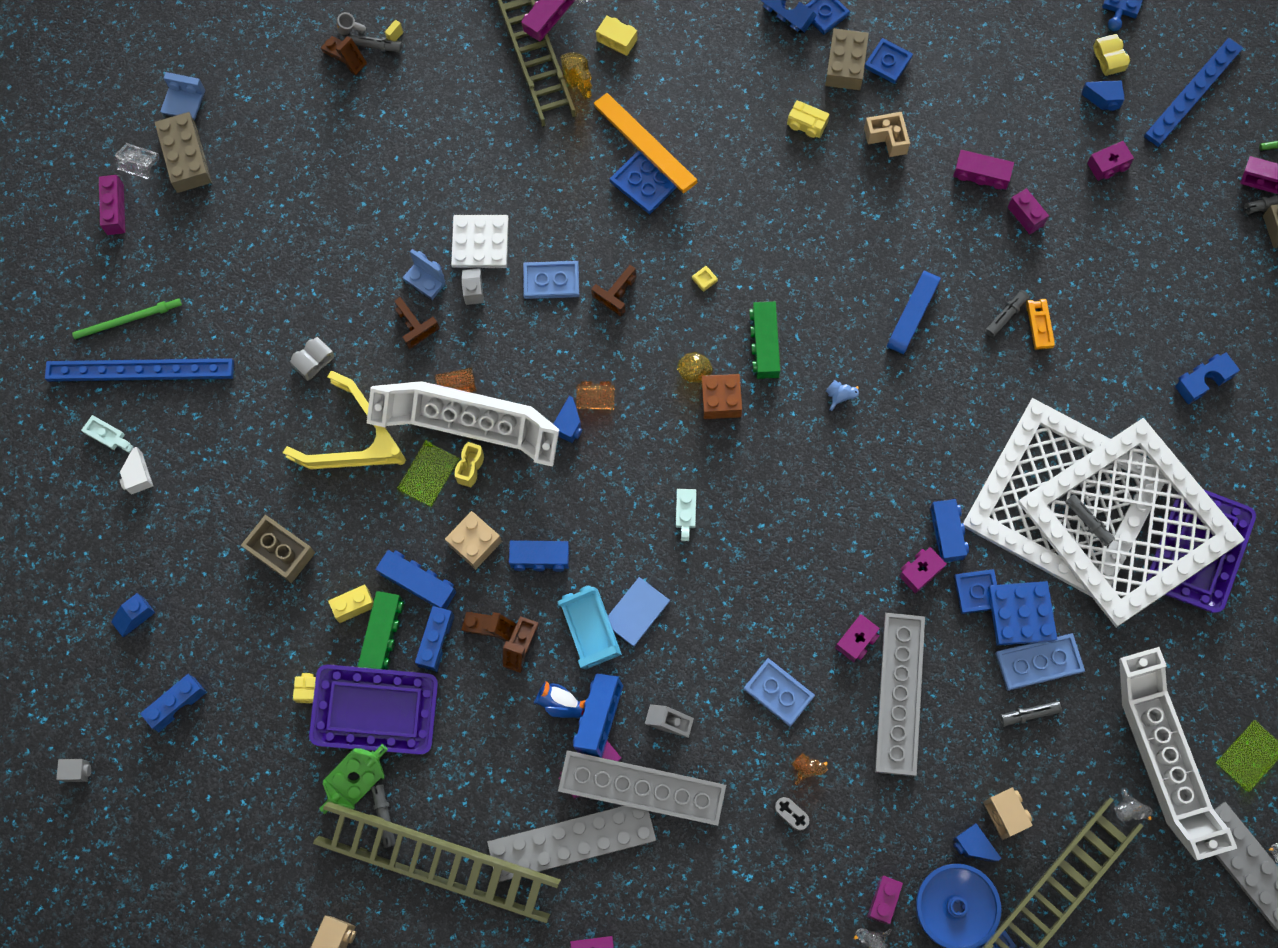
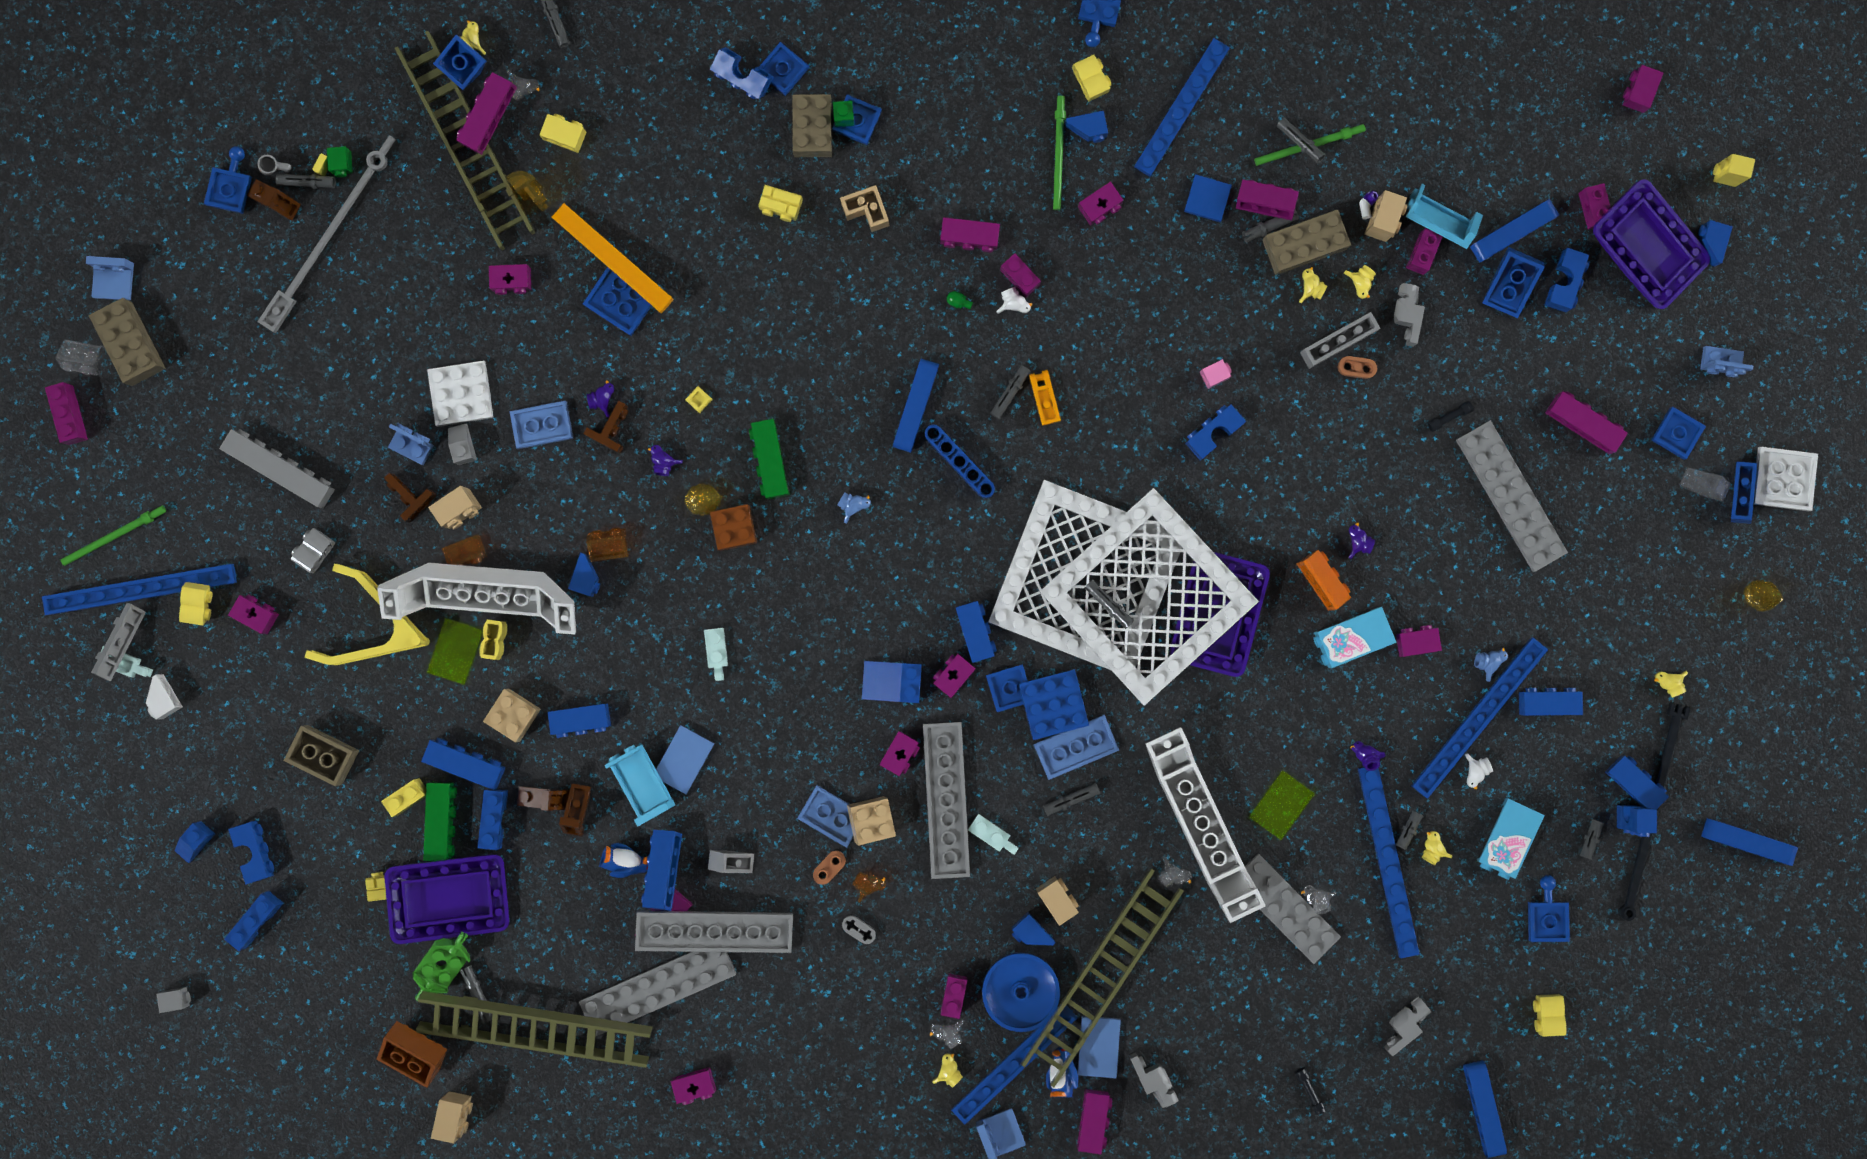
camera: 10 degrees left, 15 degrees up
(108, 411) = (118, 642): none -> light grey hinge
(189, 388) = (194, 603): none -> light yellow brick
(191, 649) = (259, 865): none -> blue arch
(233, 403) = (243, 613): none -> magenta brick
(295, 281) = (277, 468): none -> light grey brick
(304, 865) = (411, 1054): none -> dark orange brick
(306, 40) = (228, 188): none -> blue plate
(333, 140) = (282, 302): none -> light grey bar
(410, 30) = (339, 161): none -> green brick
(457, 337) = (455, 508): none -> tan brick
(546, 148) = (501, 273): none -> magenta brick
(612, 262) = (601, 398): none -> dark purple animal
(661, 327) = (662, 461): none -> dark purple animal
(769, 744) = (829, 867): none -> nougat plate
(821, 699) = (871, 820): none -> tan brick
(859, 567) = (891, 681): none -> blue slope
(878, 50) = (843, 113): none -> green brick
(943, 737) = (992, 834): none -> light aqua plate
(951, 377) = (957, 452): none -> blue beam
(965, 226) = (958, 300): none -> green cylinder
(1019, 233) = (1014, 301): none -> white animal
(1078, 83) = (1060, 116): none -> bright green bar
(1211, 325) = (1216, 373): none -> bright pink brick
(1213, 171) = (1207, 198): none -> blue tile

